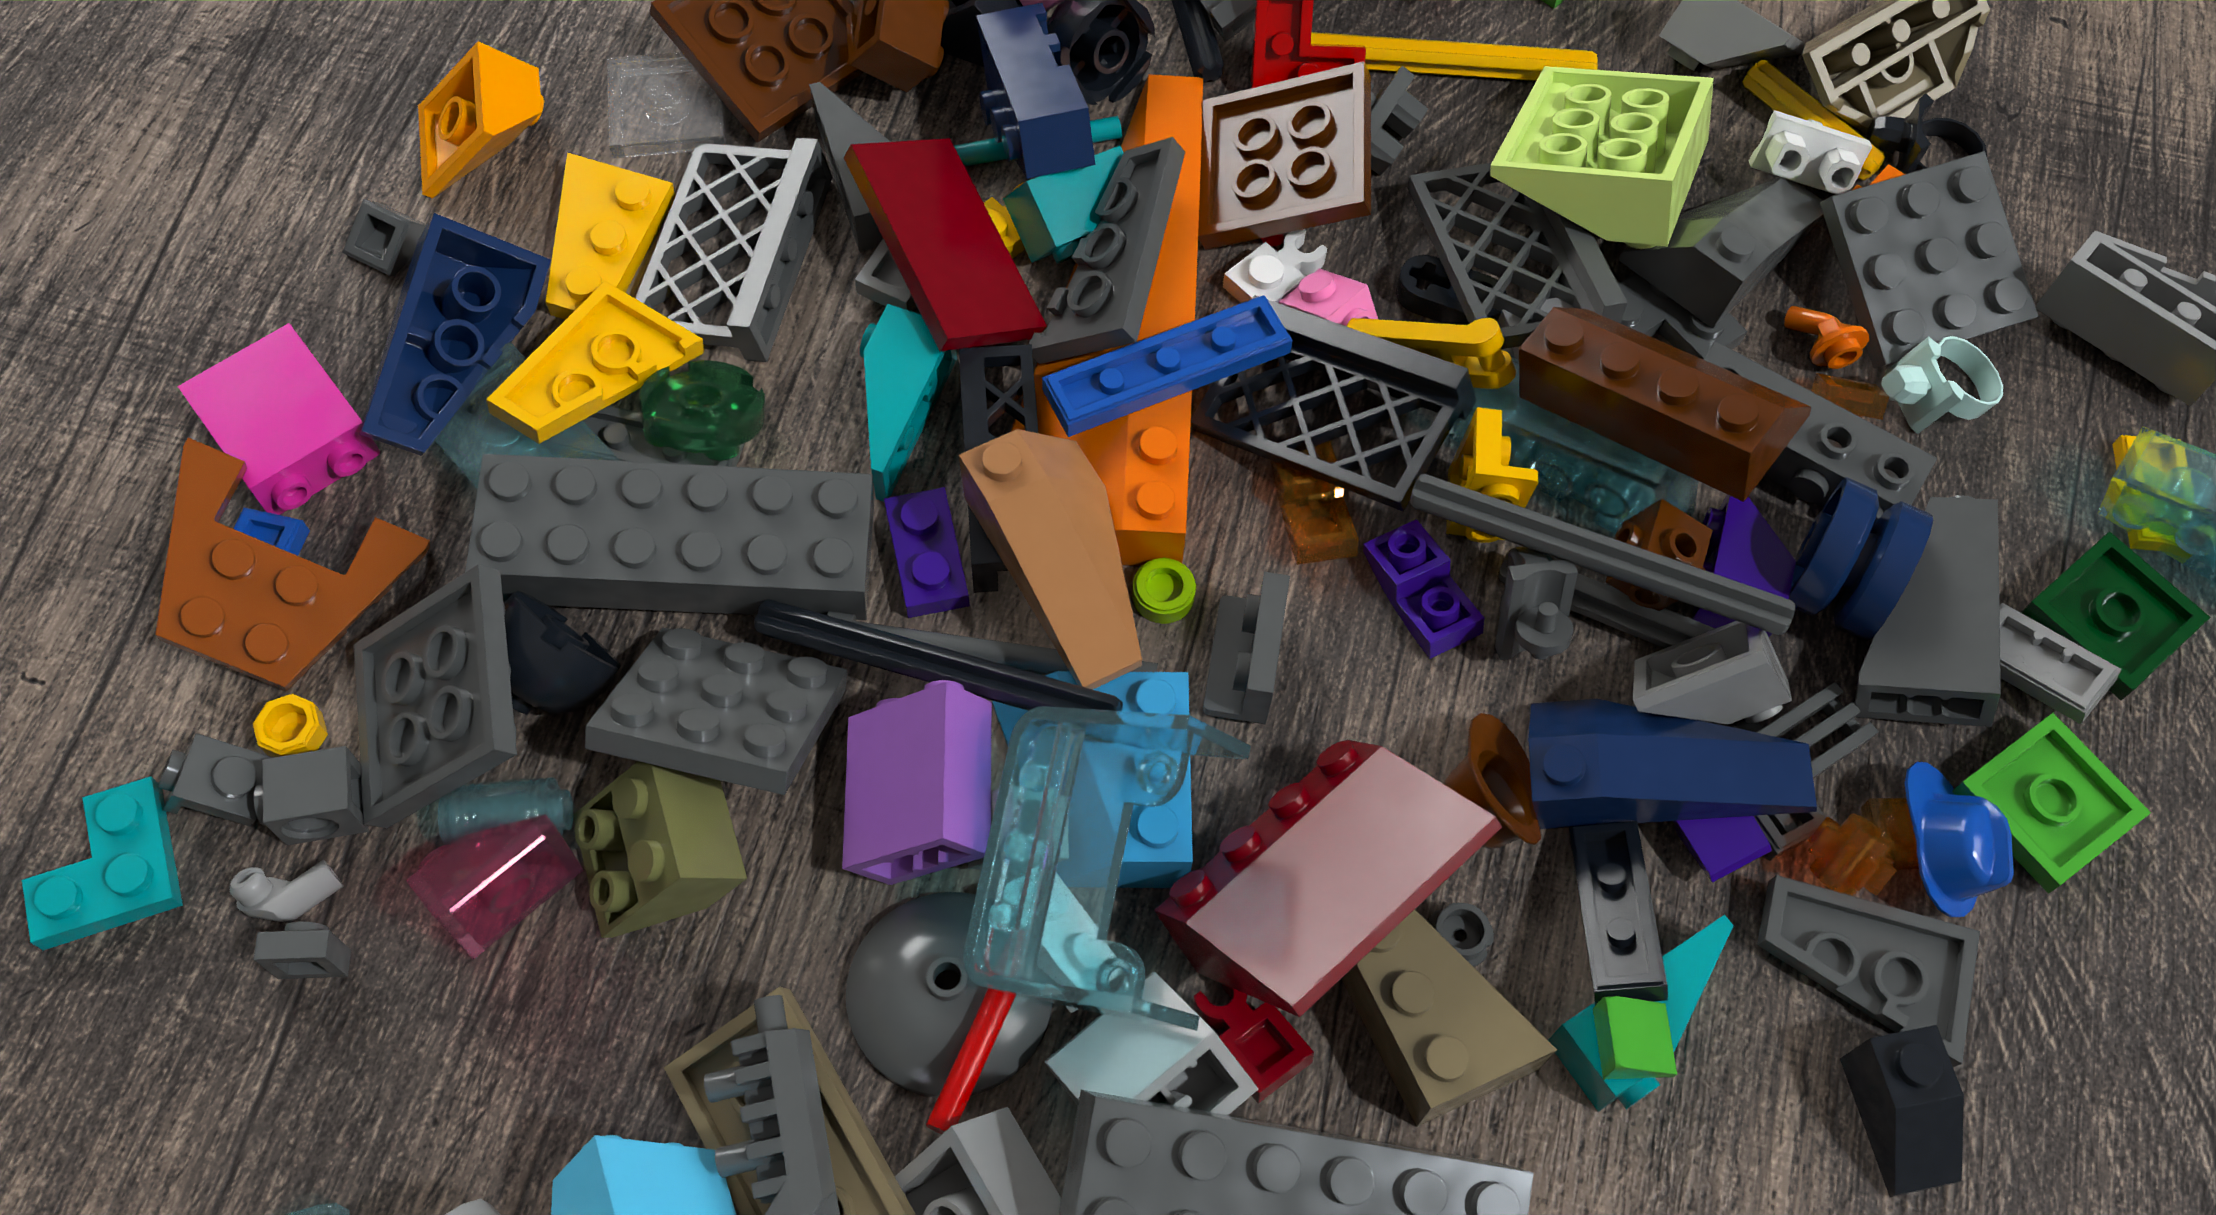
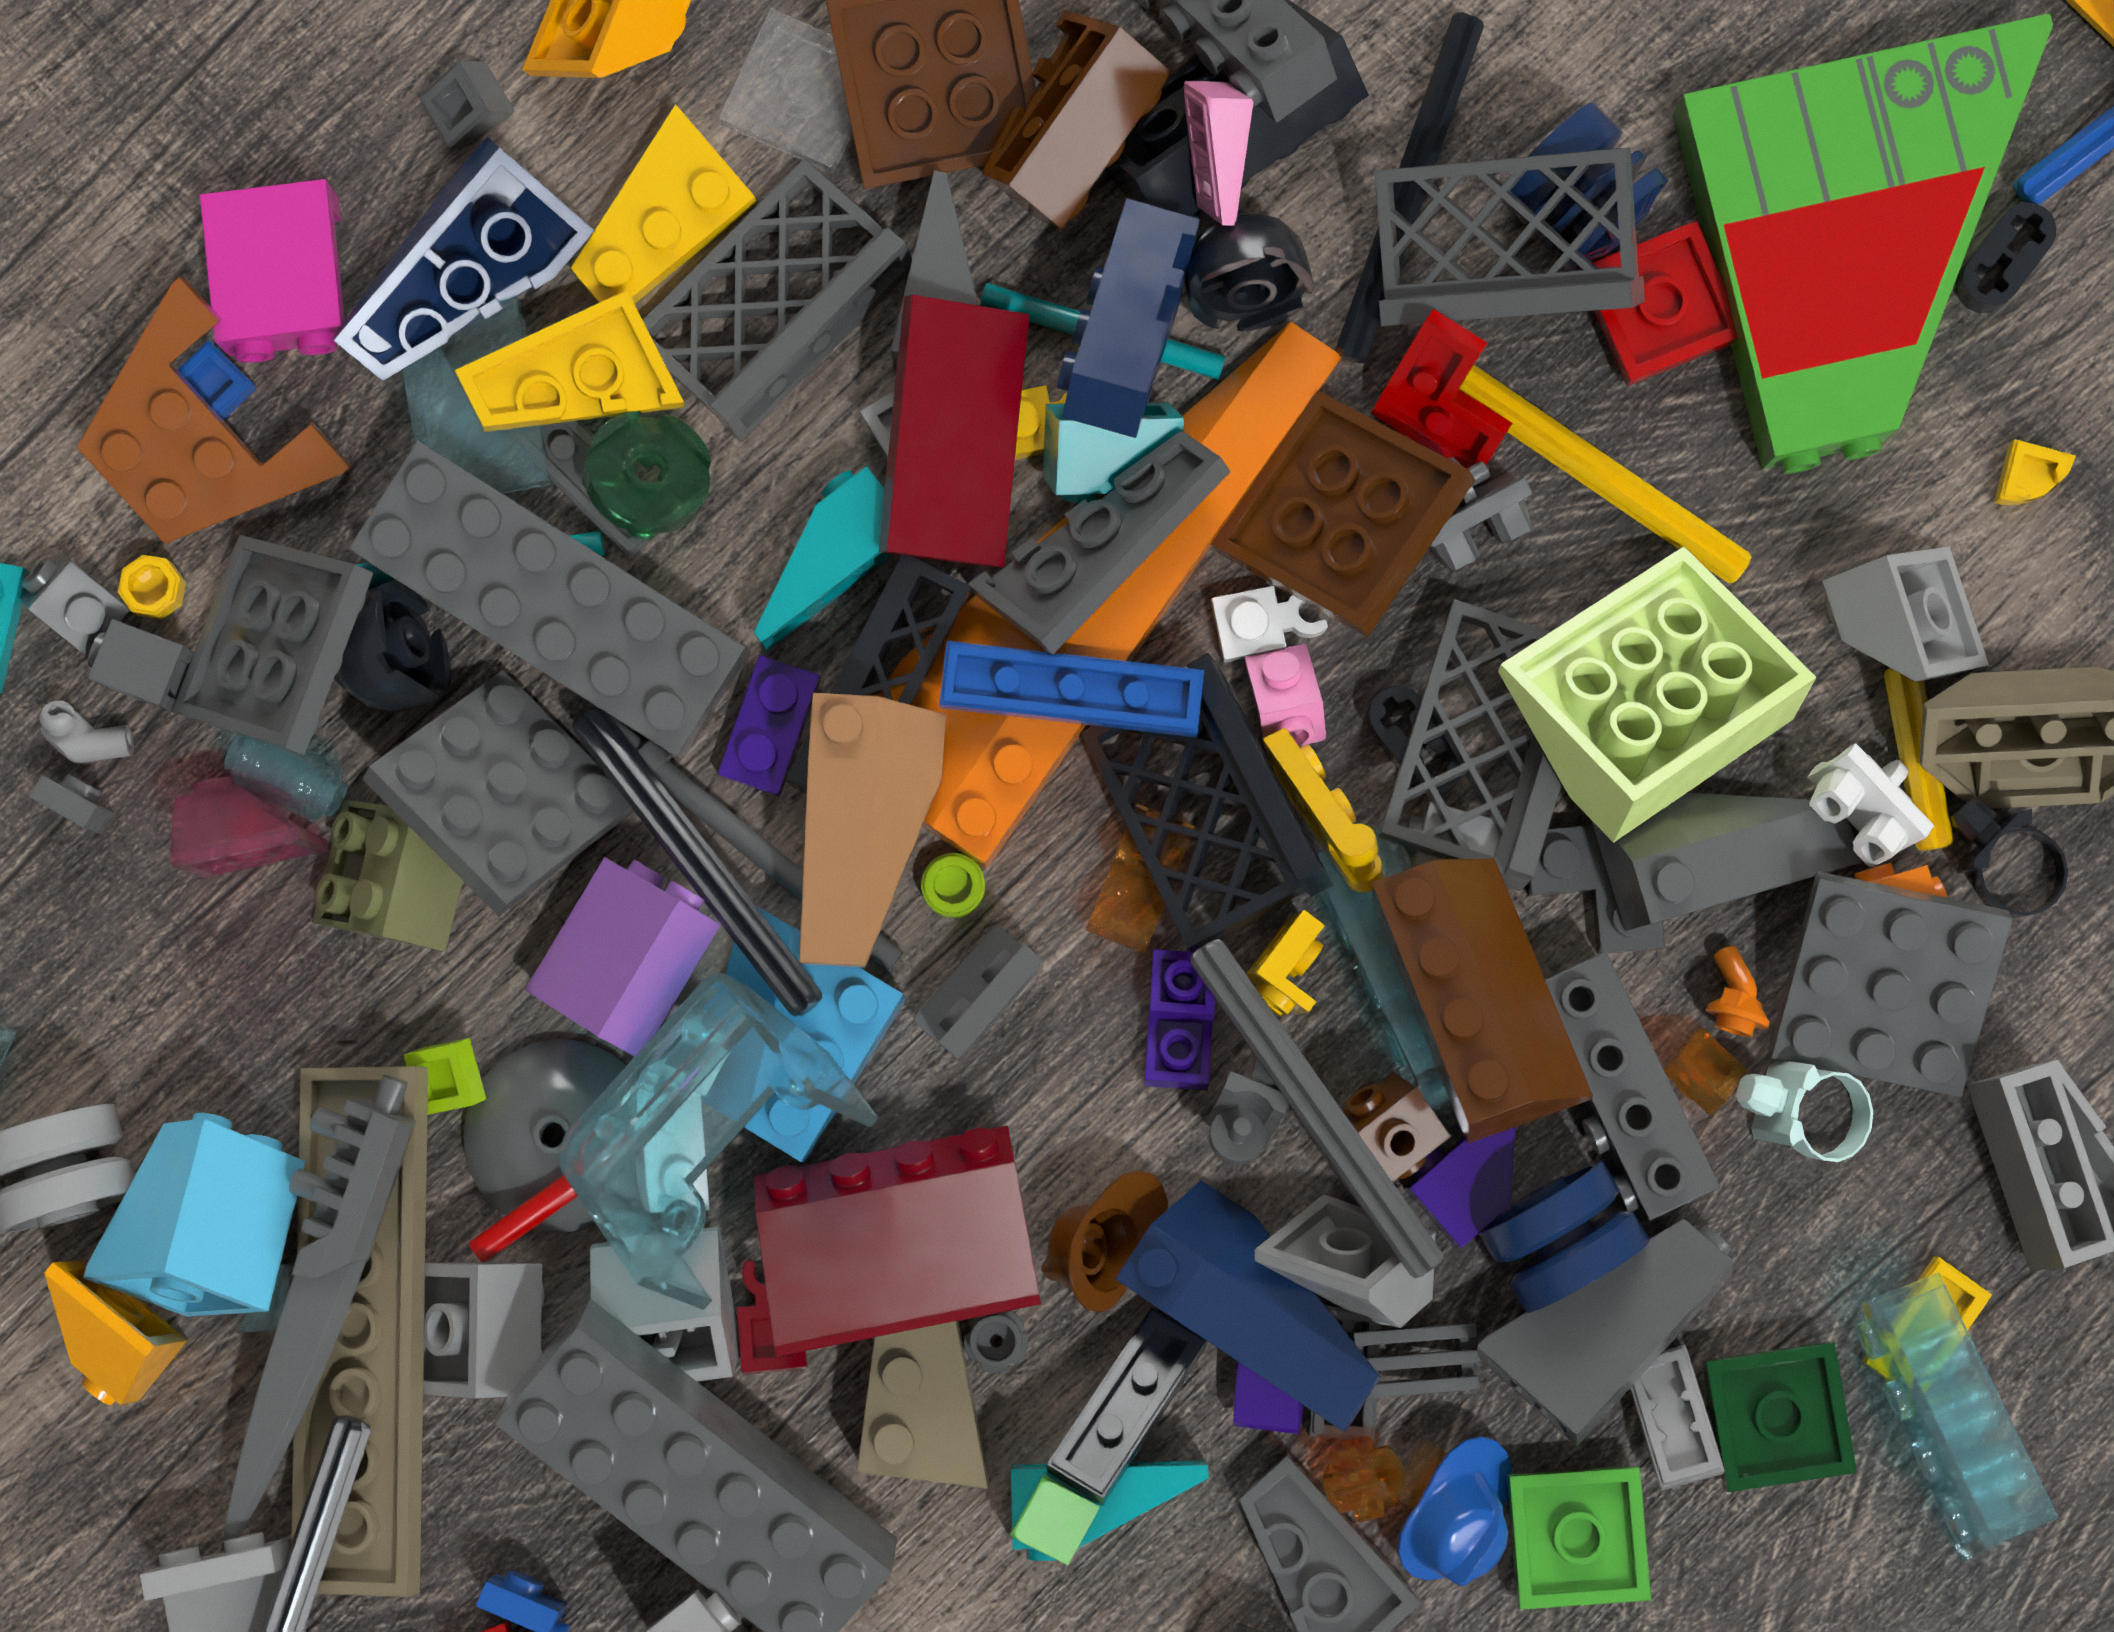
camera: 35 degrees right, 20 degrees up
(817, 987) = (452, 1075): none -> lime plate

